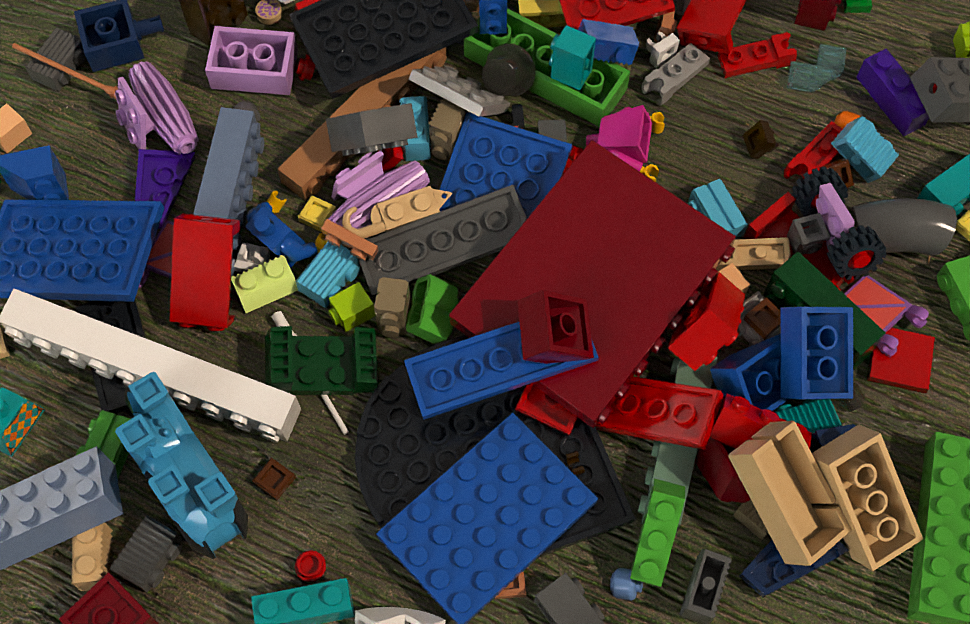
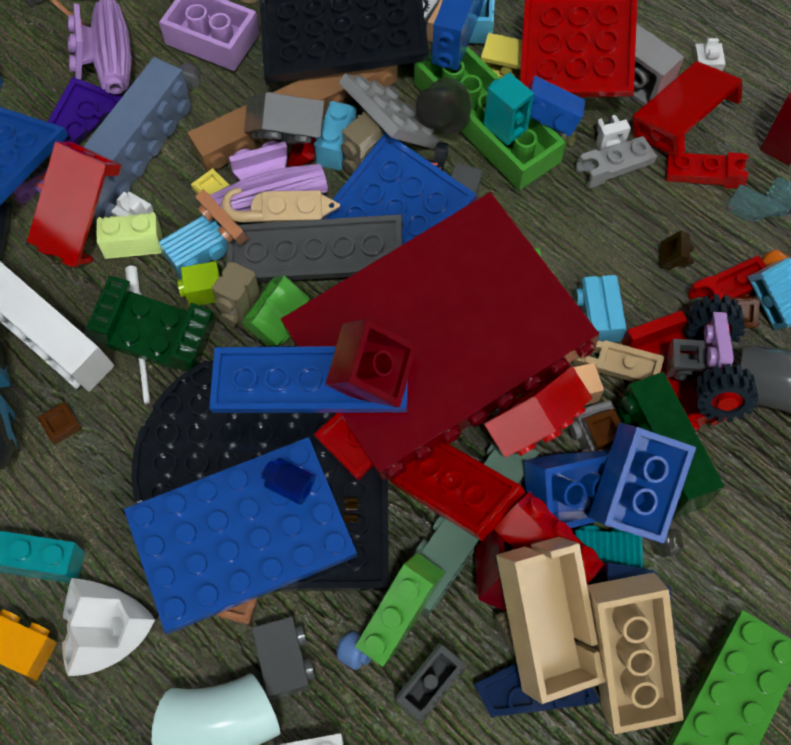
camera: 20 degrees right, 0 degrees up
(278, 235) = (160, 192): blue torso -> none
(305, 68) = (255, 51): red plate -> none
(310, 566) = (54, 519): red plate -> none
(516, 455) = (288, 480): none -> clear blue brick
(628, 136) = (537, 207): dark pink torso -> none
(666, 24) = (626, 109): nougat plate -> none
(885, 309) = (737, 463): flag -> none
(908, 366) = (739, 521): red tile -> none

